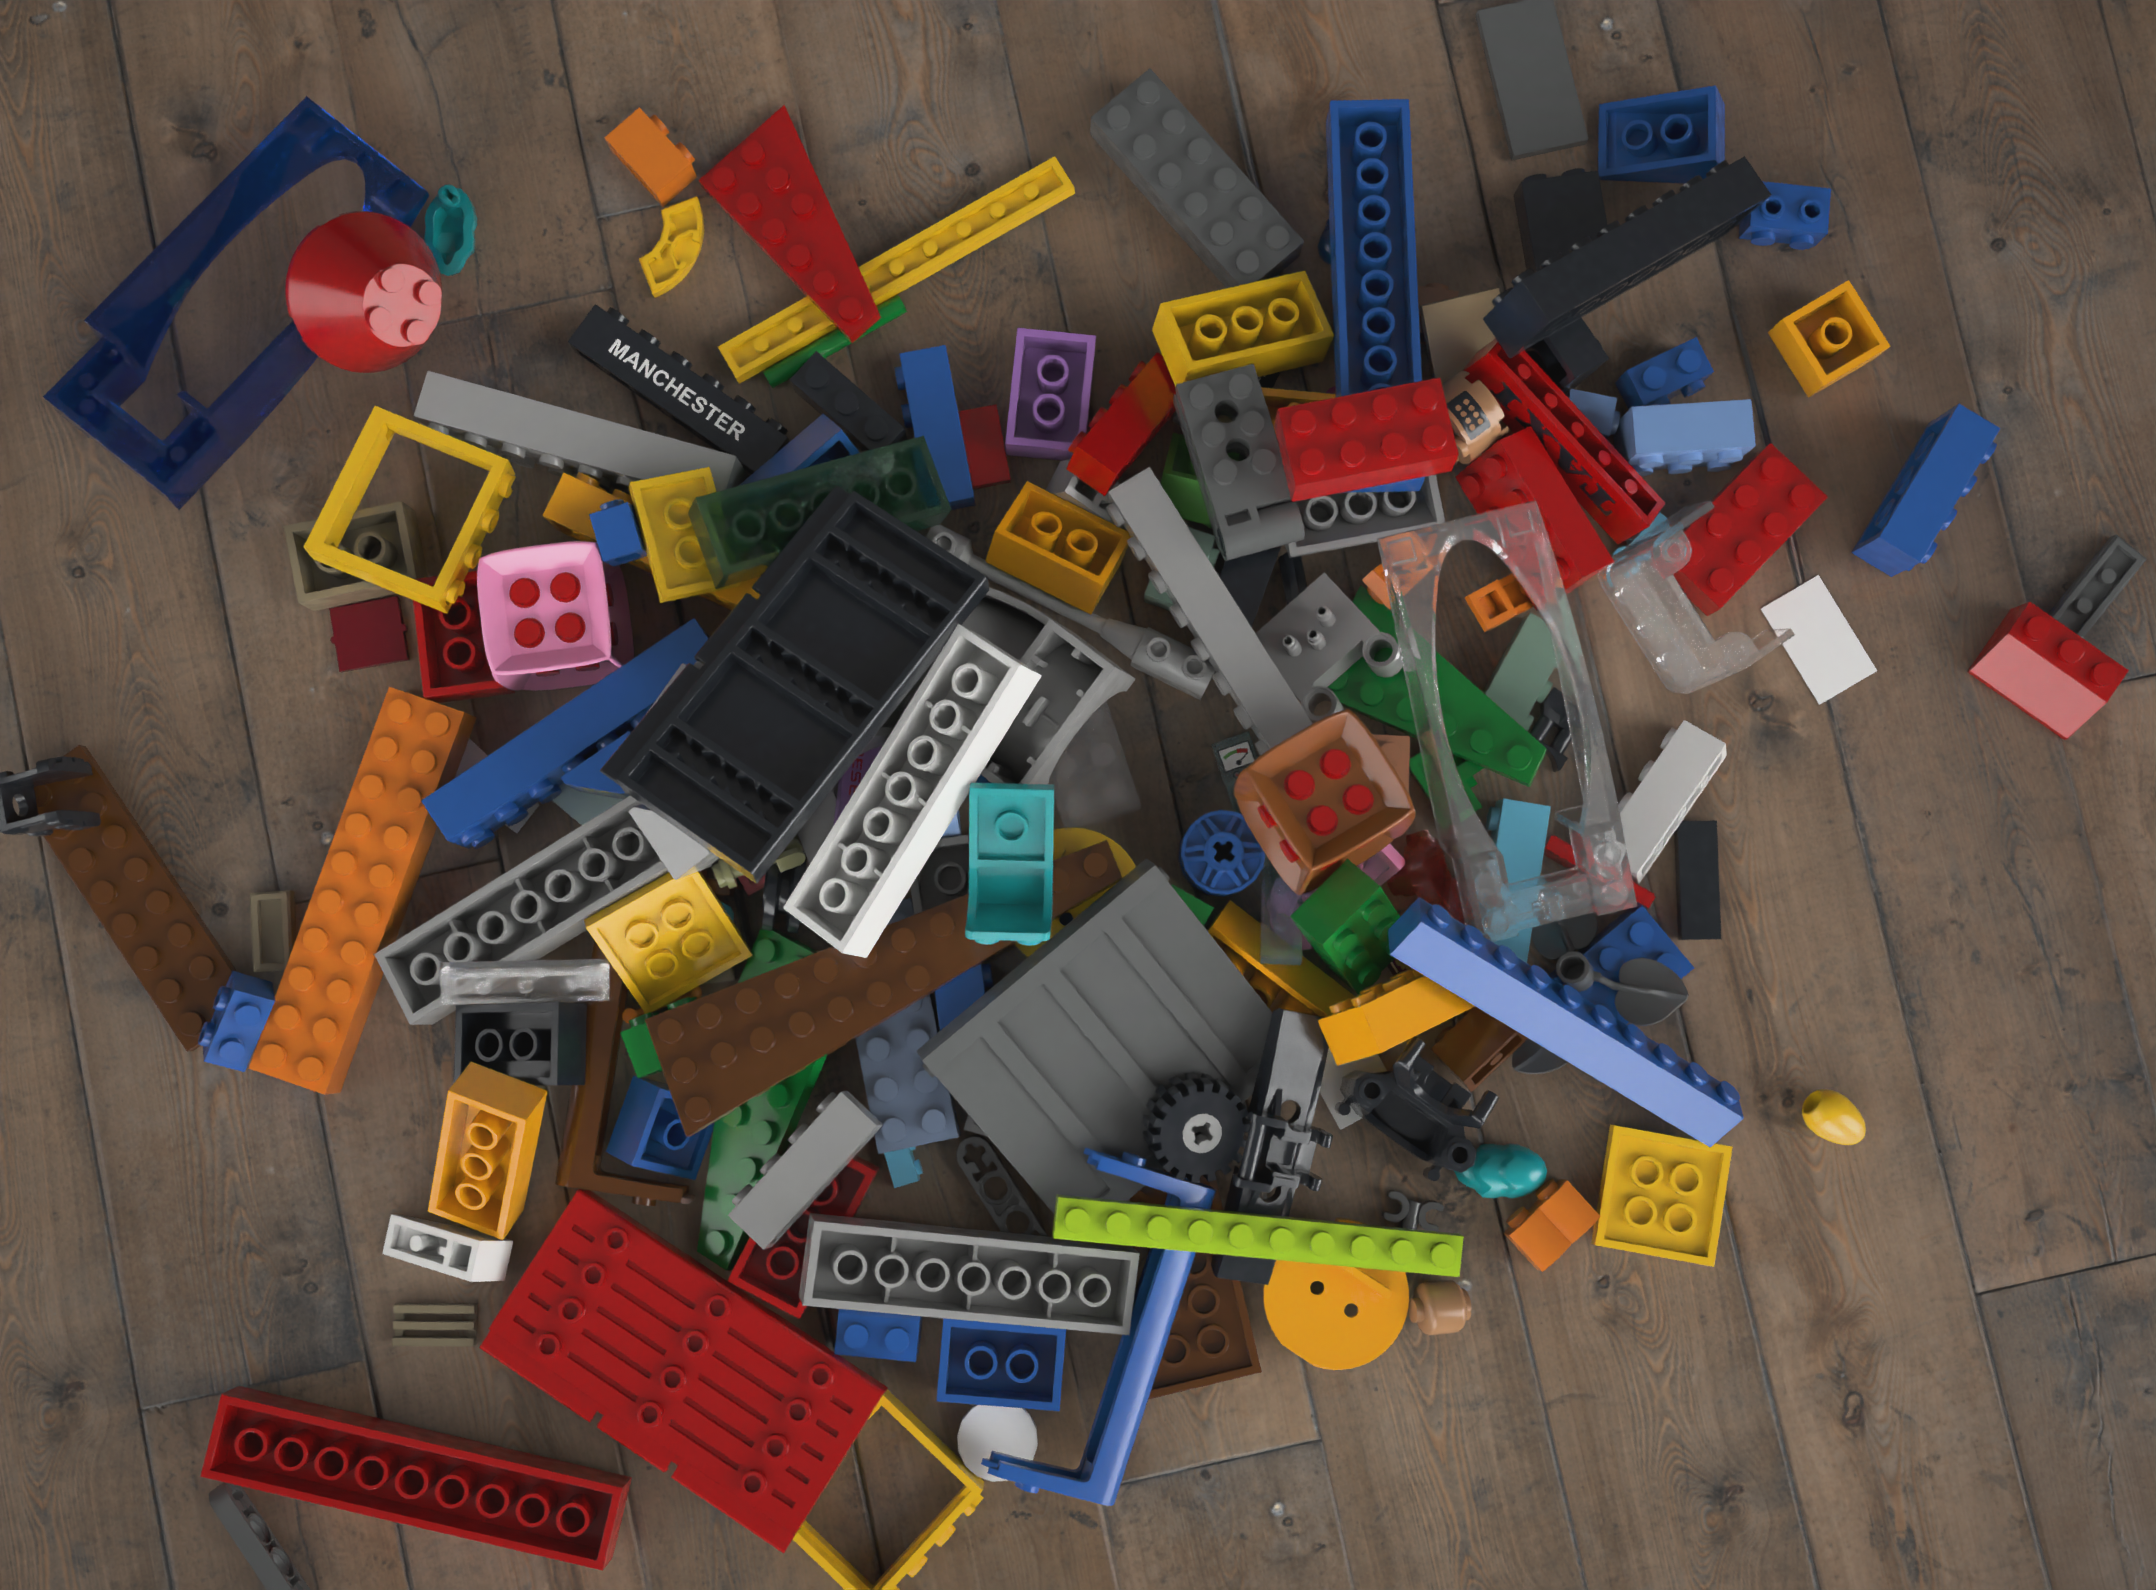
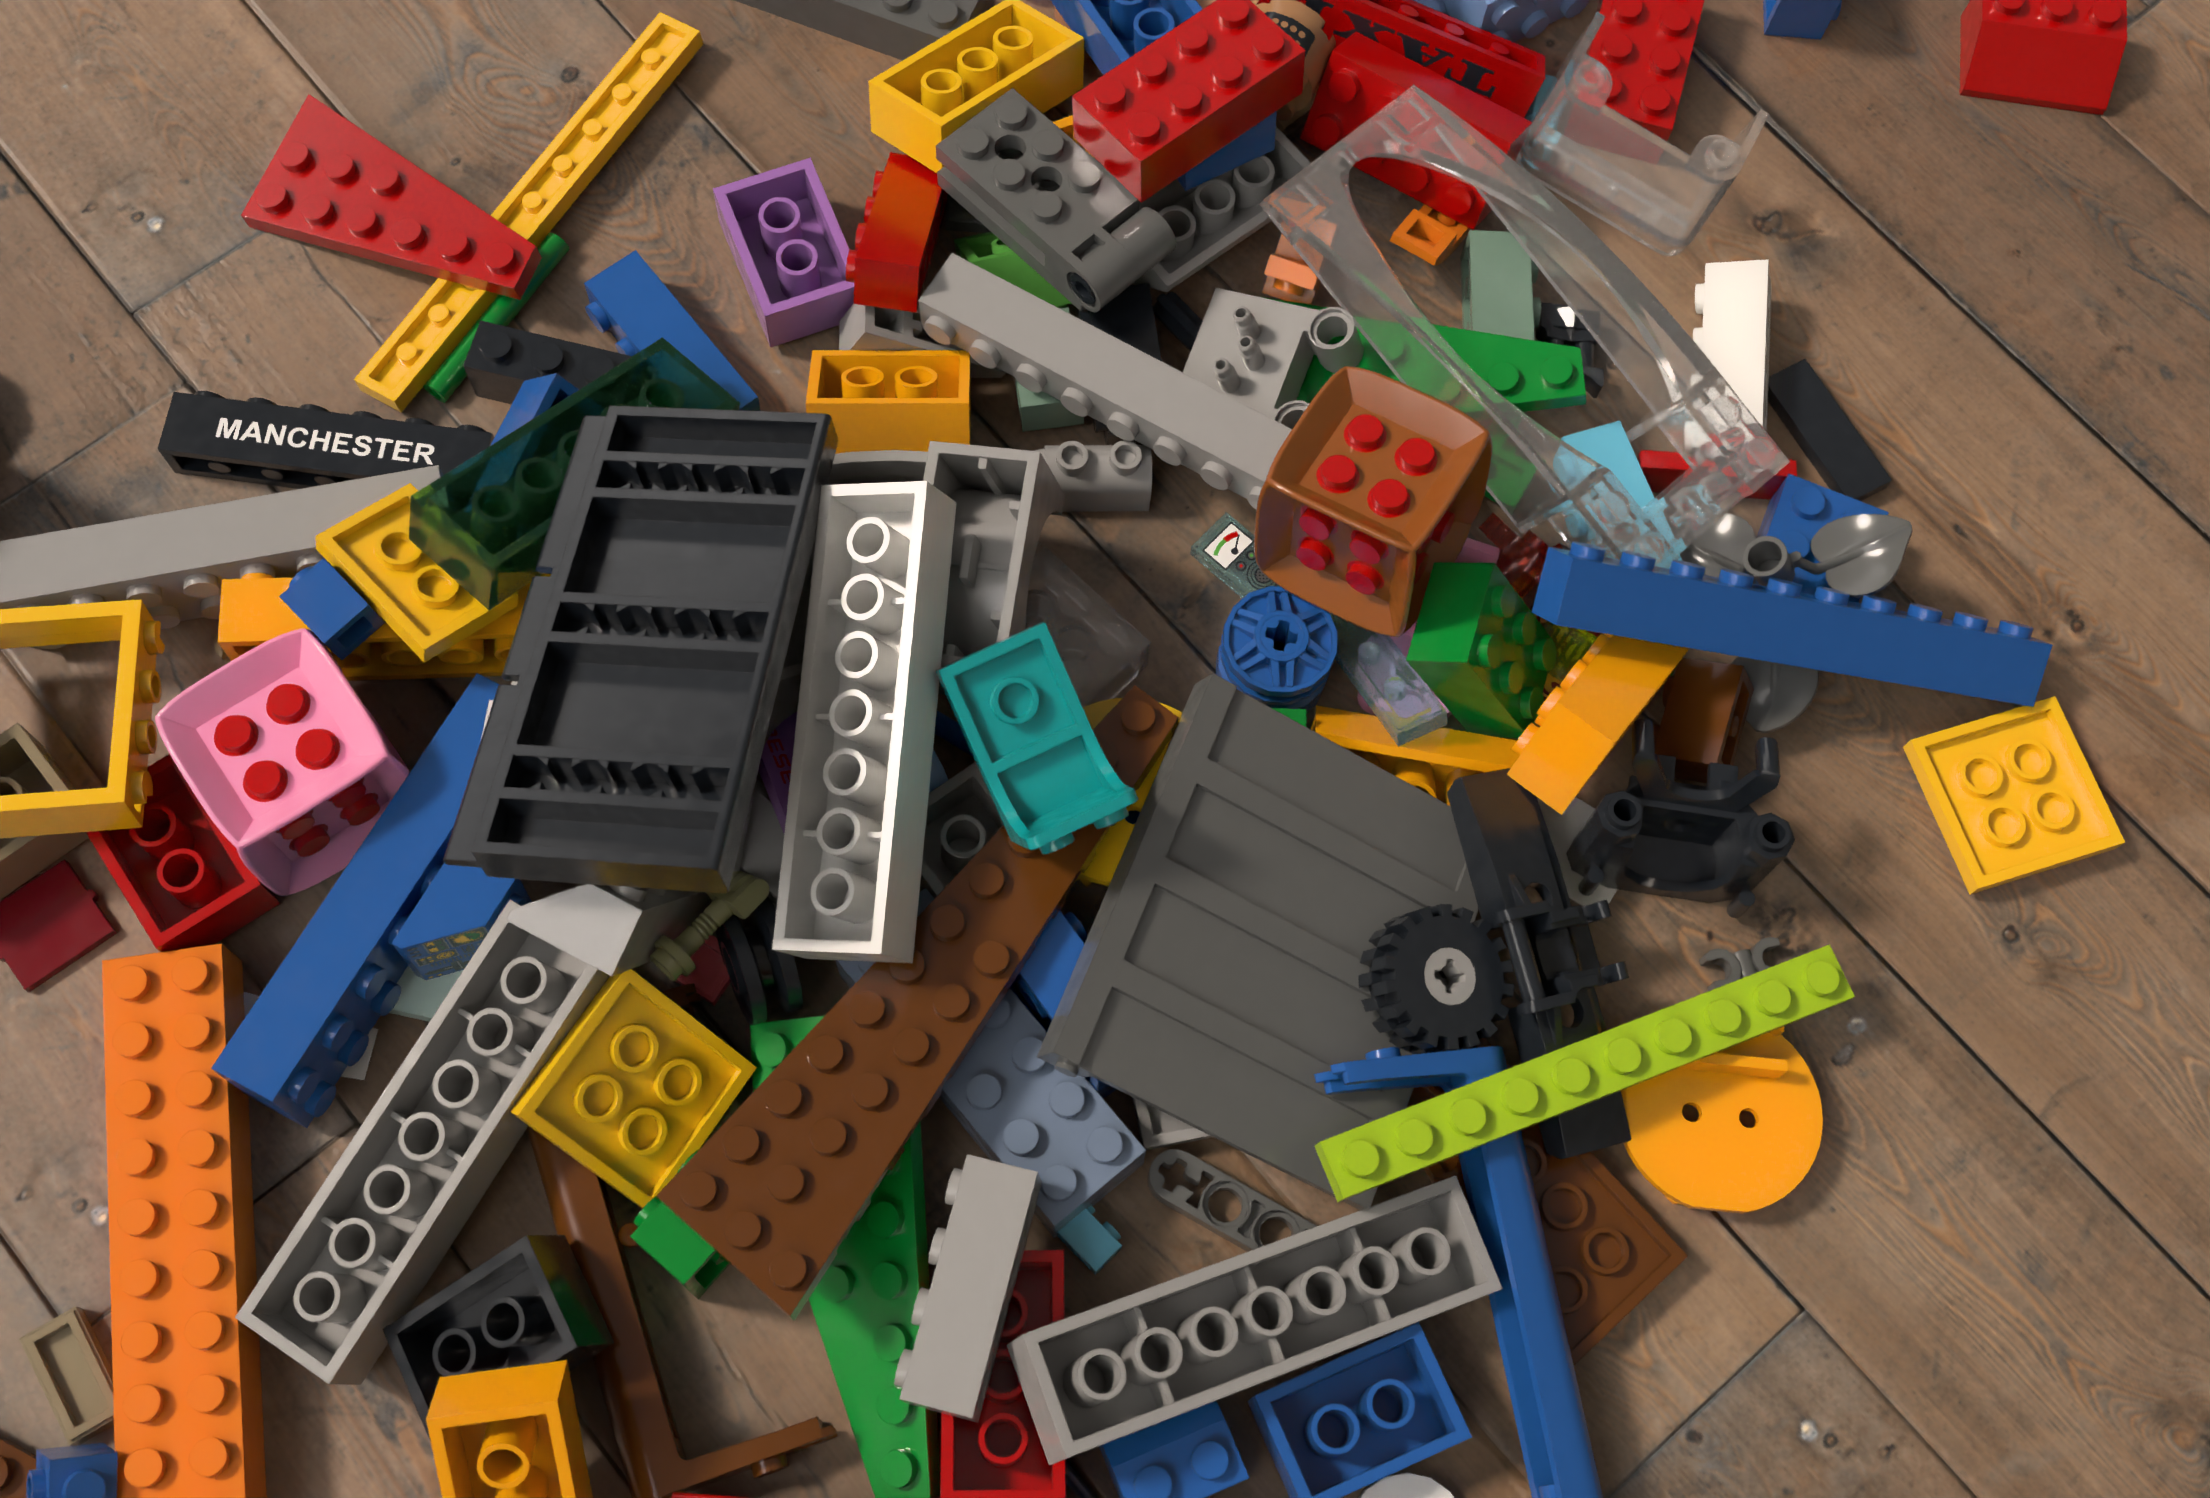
camera: 30 degrees left, 15 degrees down
(524, 981) = (463, 1239): clear tile -> none
(651, 156) = (169, 212): orange brick -> none
(652, 1135) = (745, 1358): blue slope -> none
(676, 248) = (249, 301): yellow tile -> none
(984, 446) = (744, 347): red tile -> none
(1439, 1307) = (1849, 1059): medium nougat head -> none
(1504, 1171) = (1820, 864): teal arm -> none
(1551, 1223) = (1912, 892): orange brick -> none
(1823, 641) = (1794, 135): white sticker -> none
(1833, 1117) = (2140, 608): yellow animal -> none

